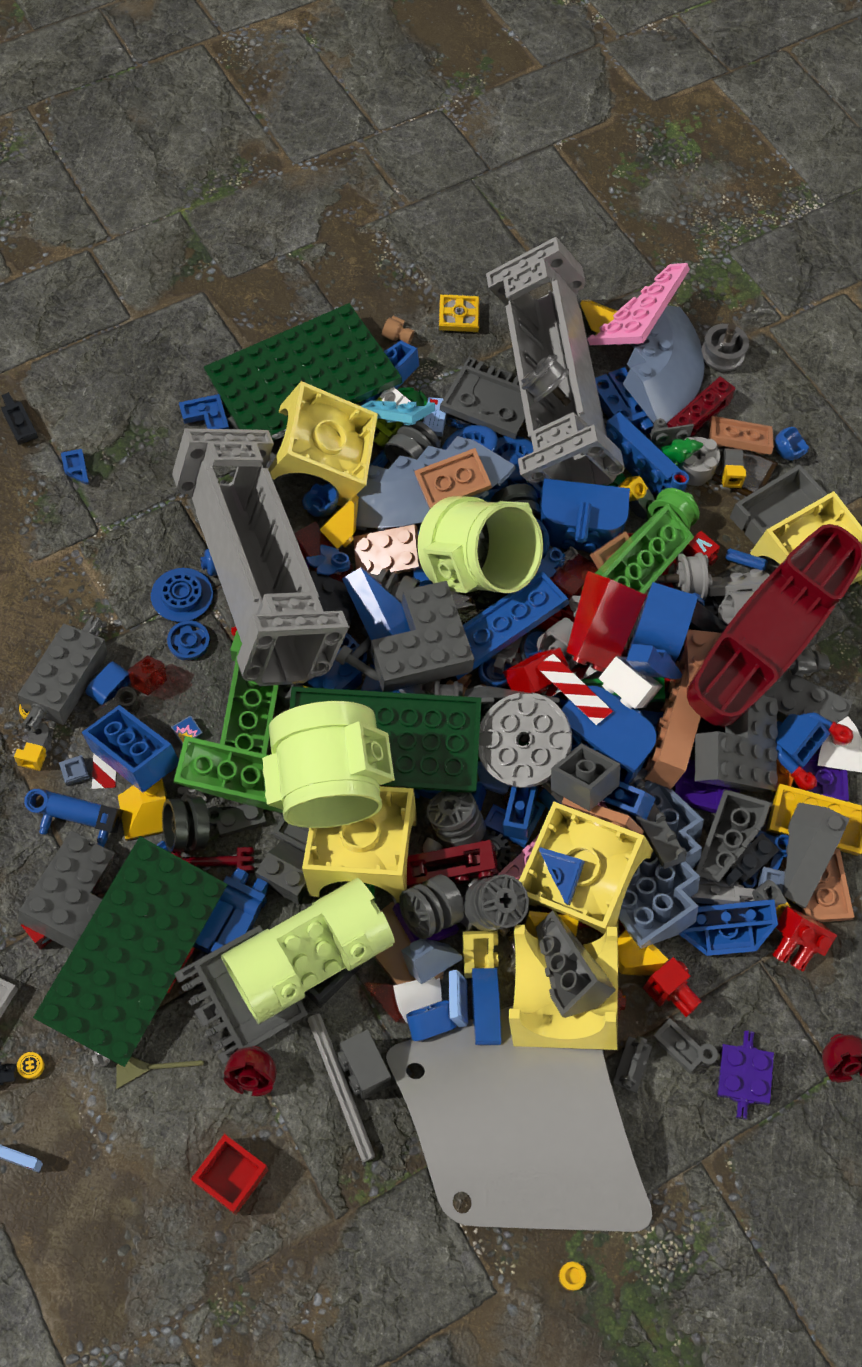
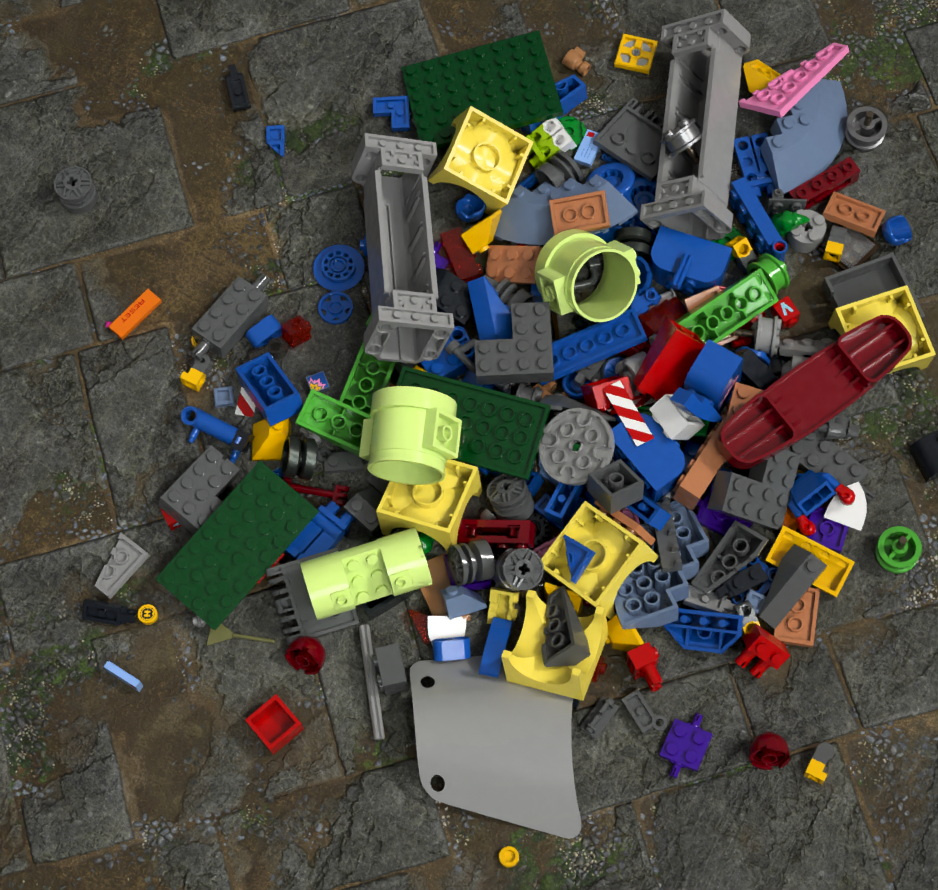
camera: 25 degrees right, 5 degrees up
(329, 561) = (462, 264): blue plate -> none
(407, 413) = (553, 144): medium azure wing -> none
(458, 998) = (476, 637): light blue tile -> none
(746, 559) = (821, 328): blue axle -> none

